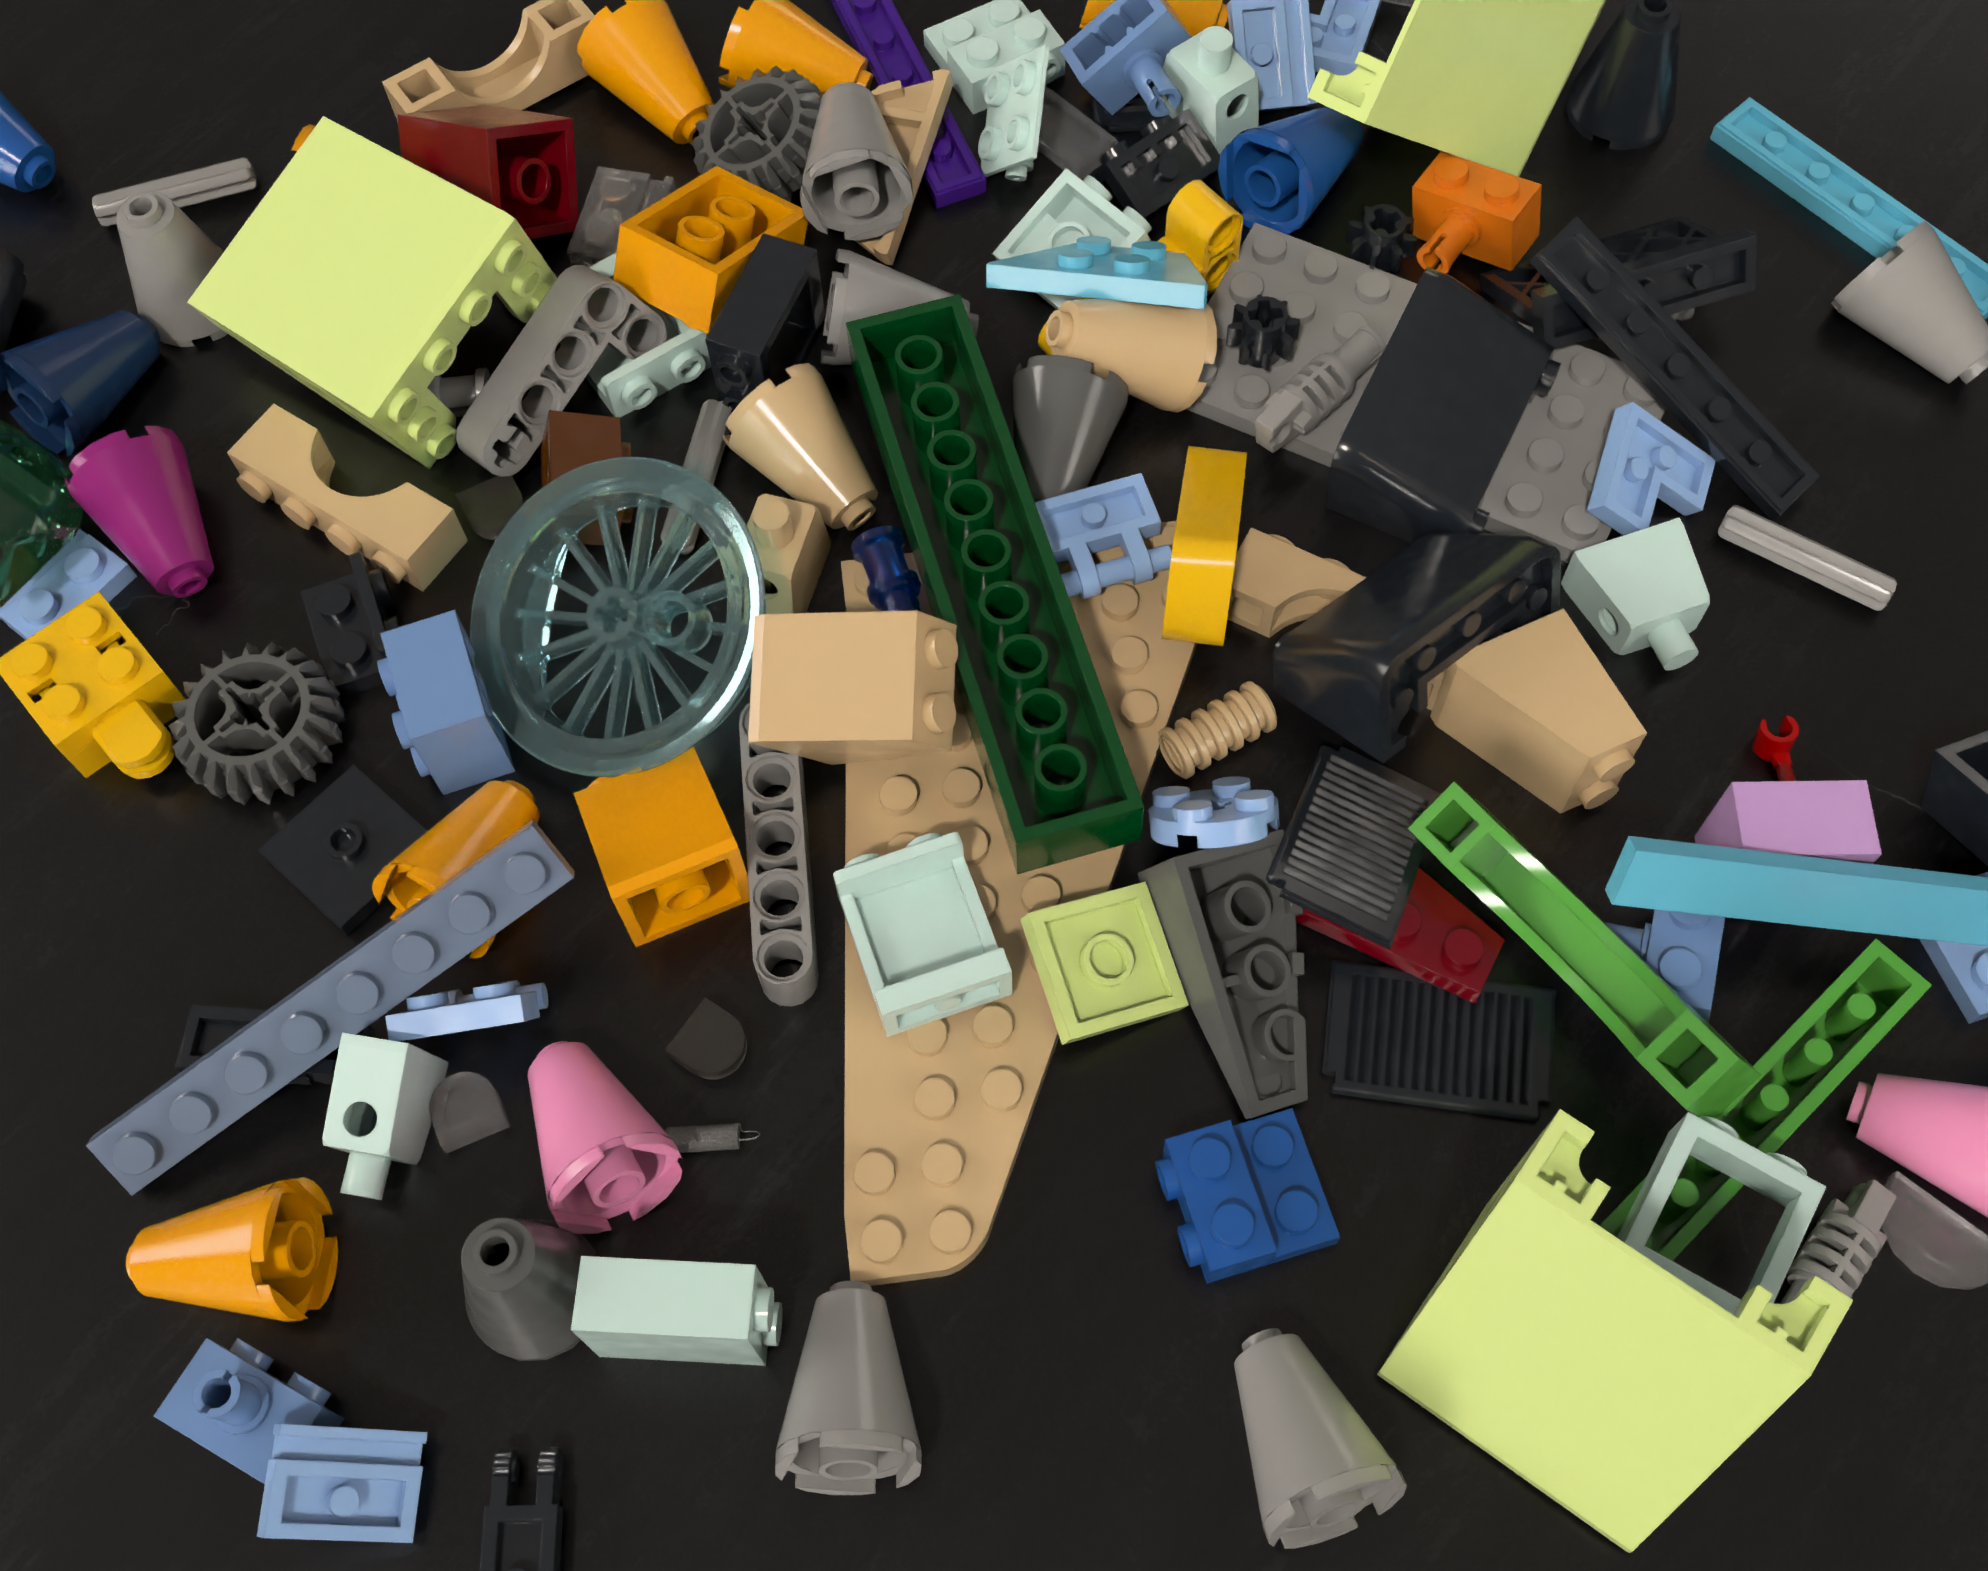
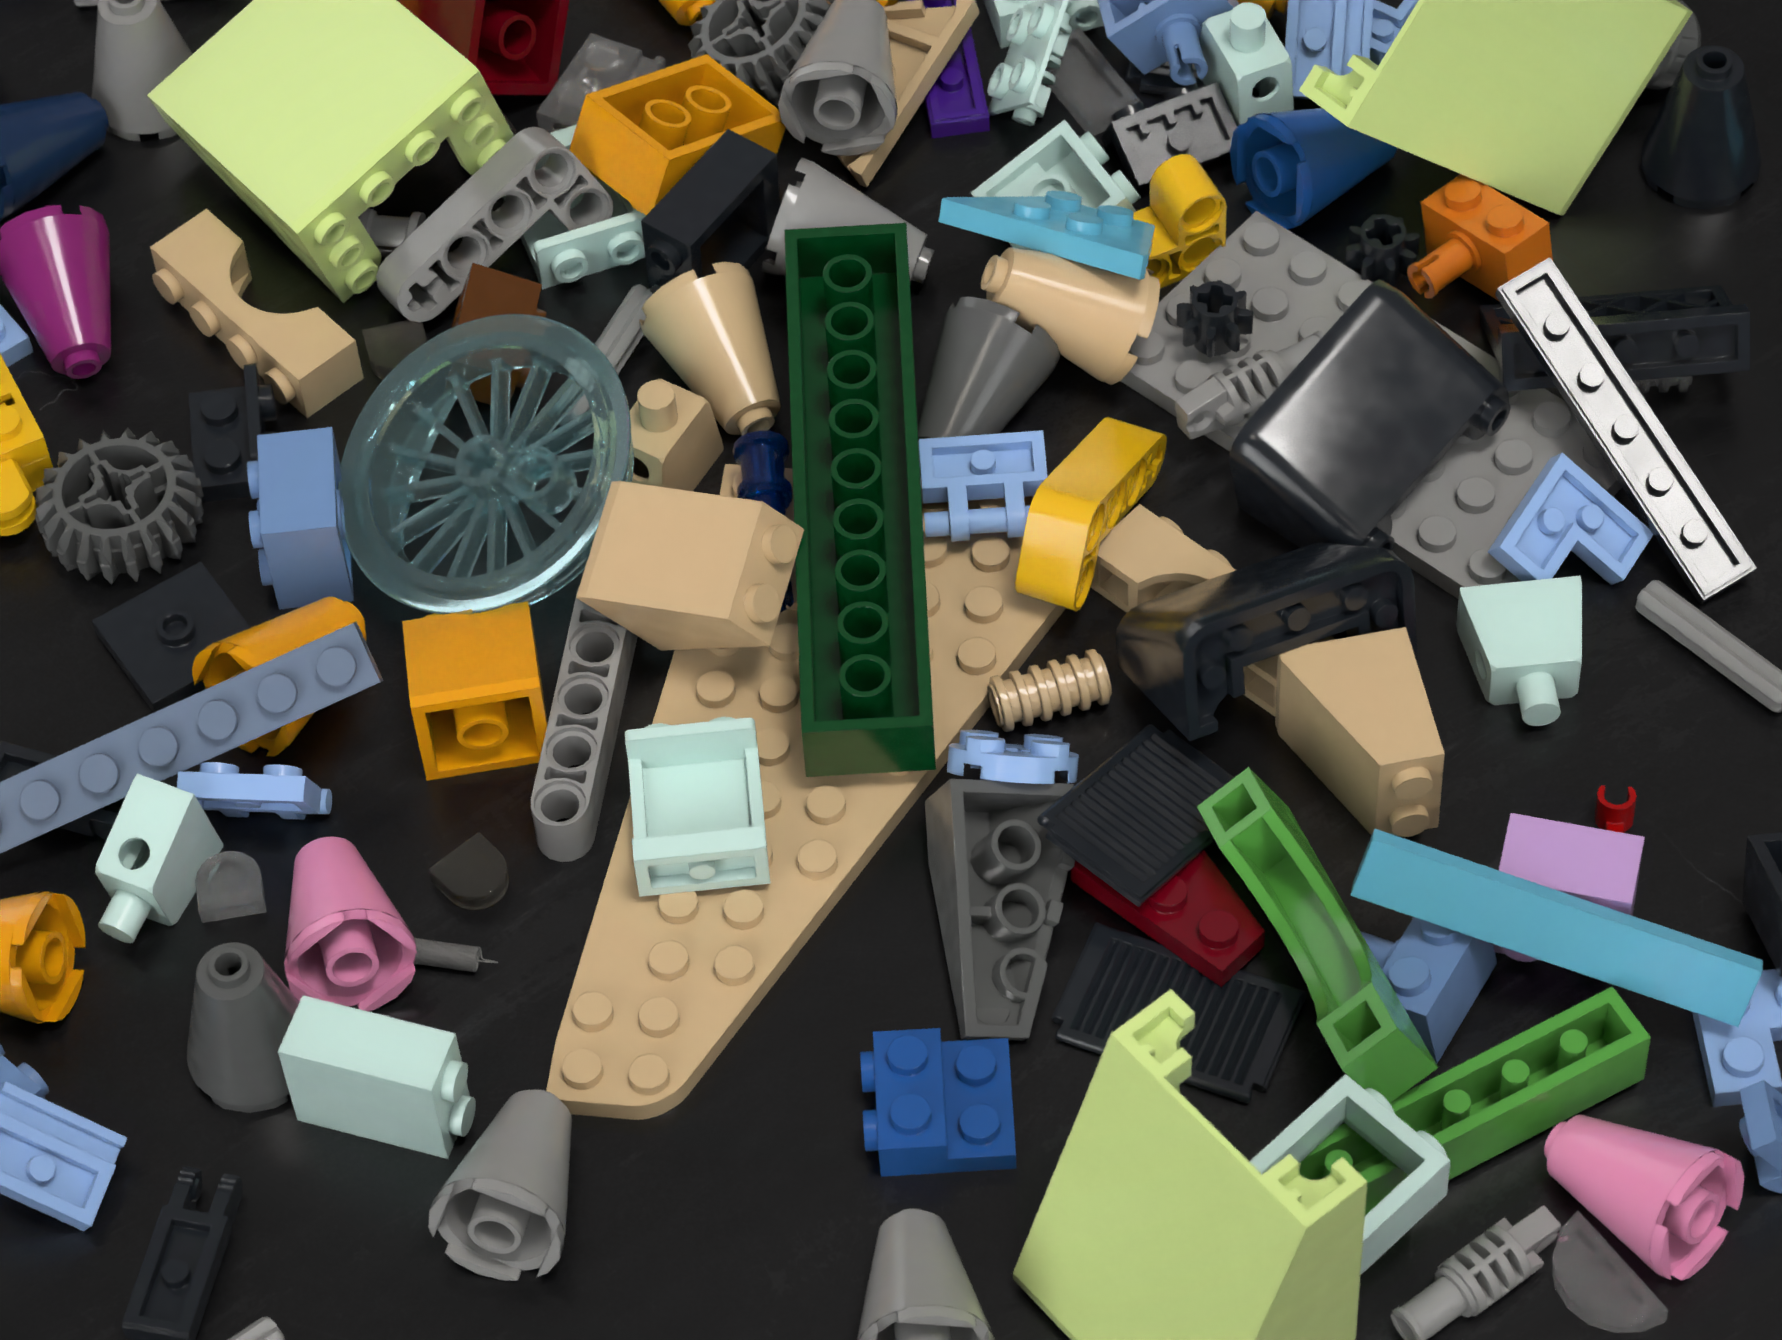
camera: 15 degrees right, 10 degrees down
(1103, 962) = (866, 872): yellowish green tile -> none

